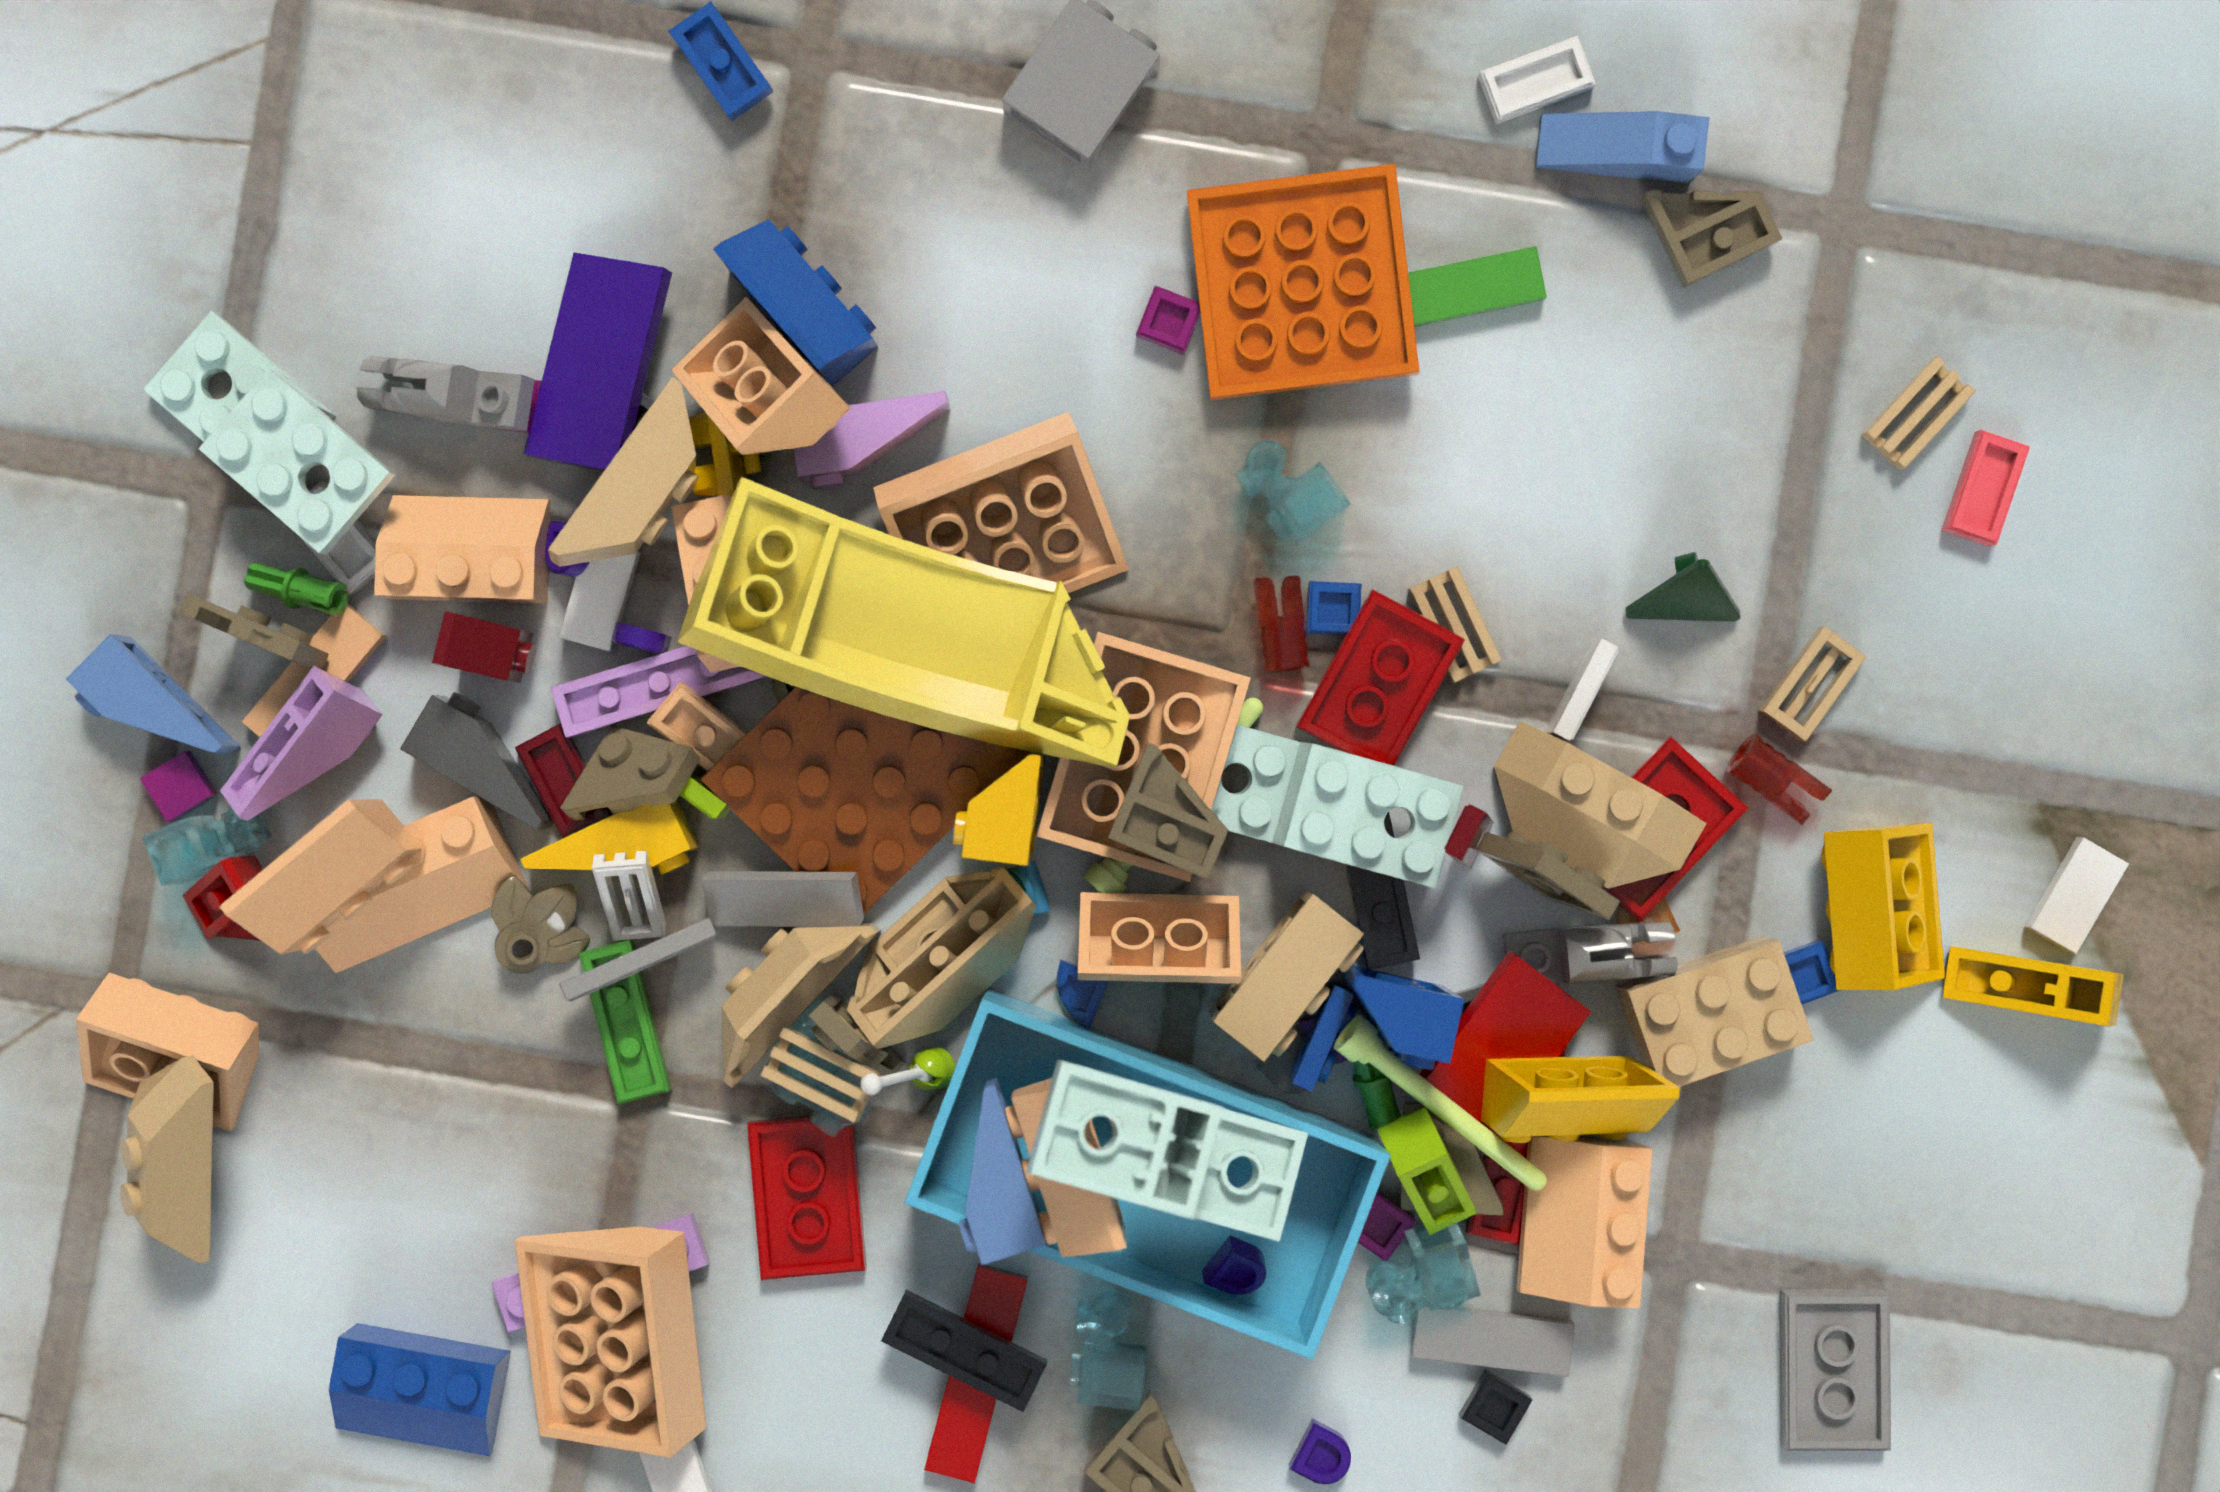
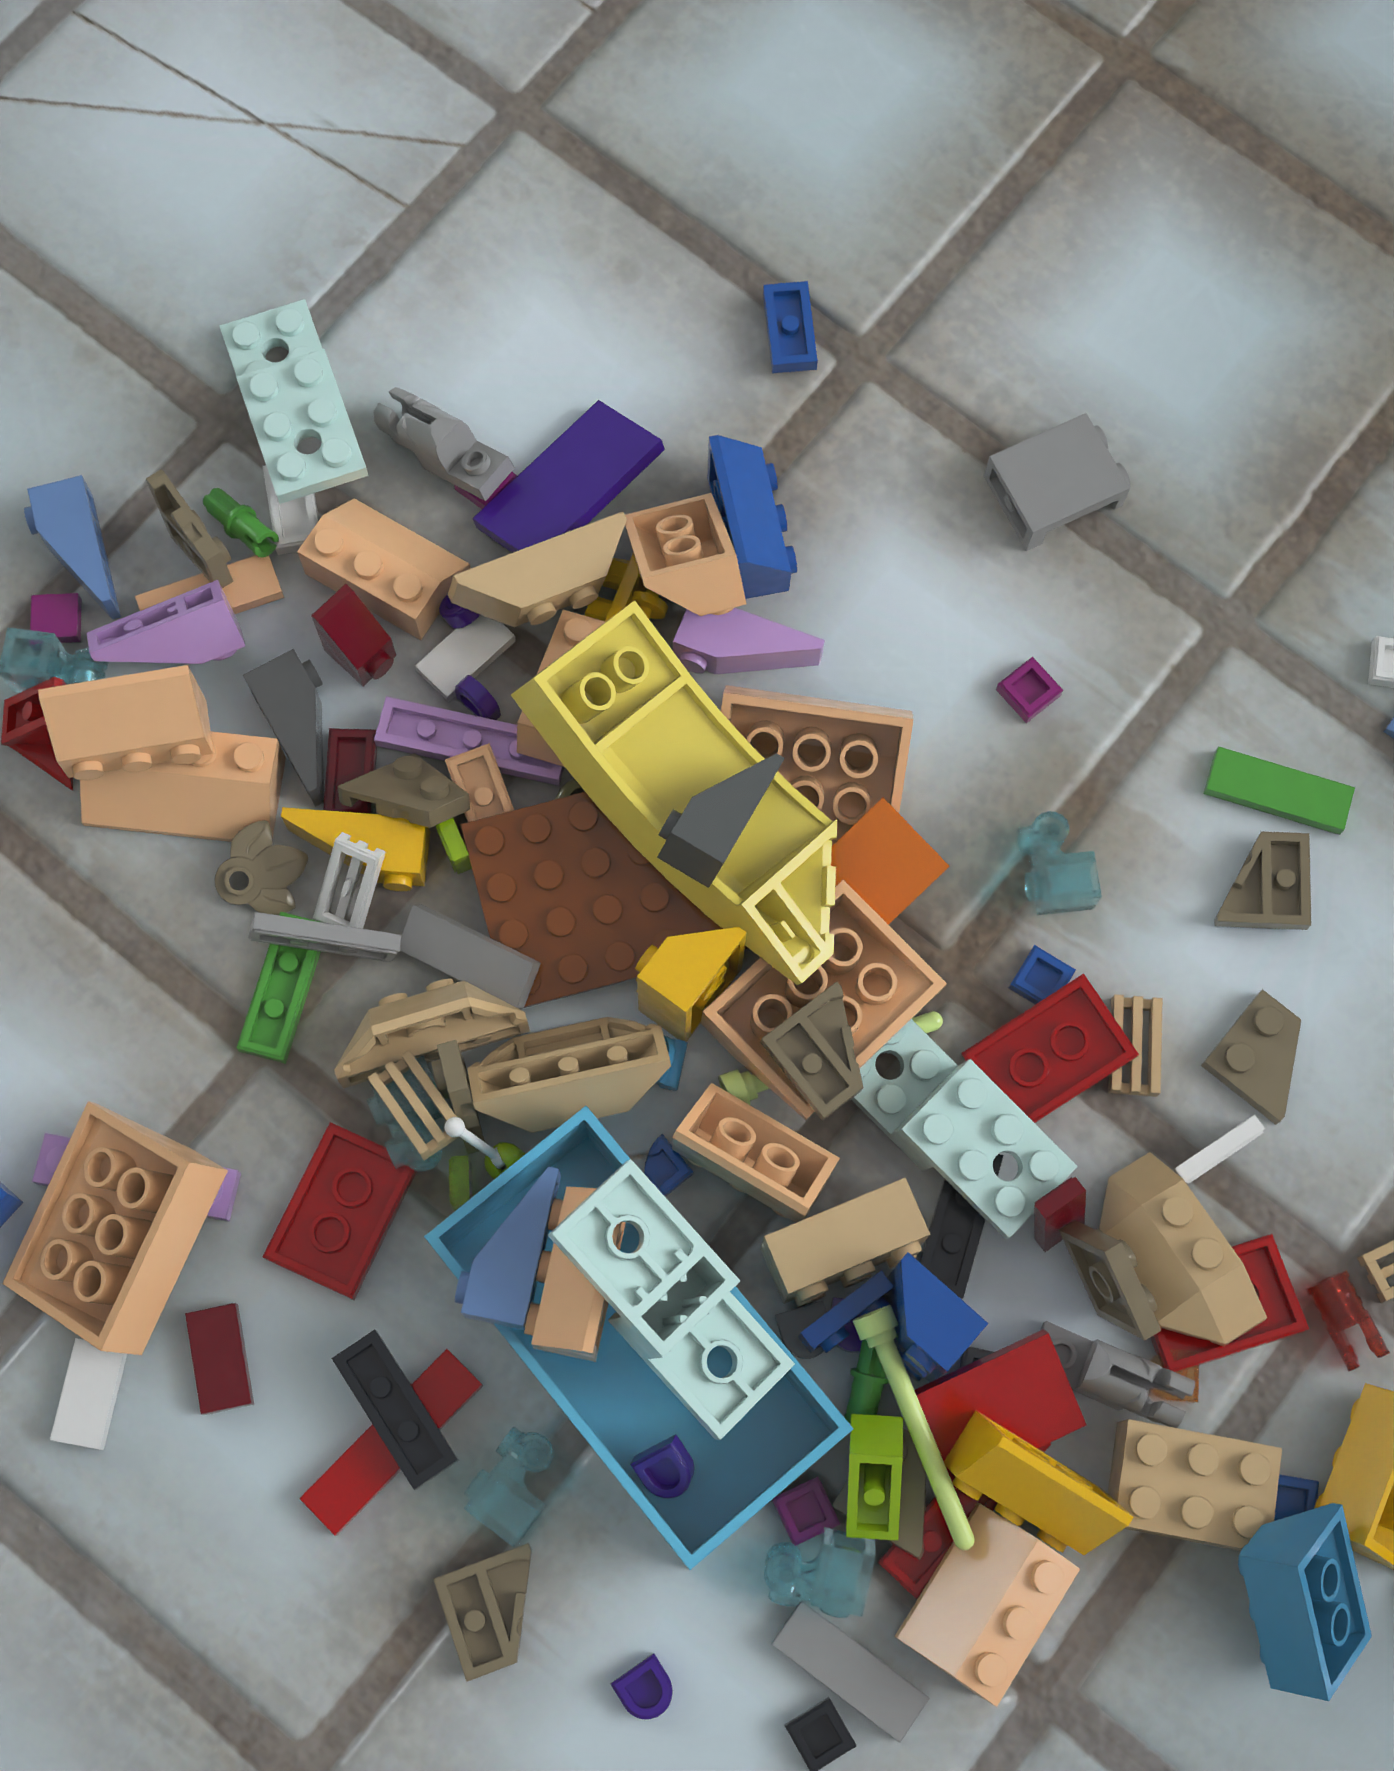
camera: 20 degrees right, 15 degrees down
(778, 1389) = (219, 1359): none -> dark red tile
(903, 1113) = (460, 1180): none -> clear neon green tile
(948, 665) = (714, 820): none -> dark grey slope
(1125, 584) = (886, 861): none -> orange tile
(1281, 636) = (992, 972): clear red hinge -> none
(1303, 282) = (1151, 715): orange plate -> none
(1504, 392) = (1271, 885): none -> dark tan wing
(1574, 568) = (1259, 1056): none -> dark tan wing
(1690, 594) = (1345, 1124): dark green piece -> none
(1865, 1063) = (1306, 1601): none -> dark azure slope

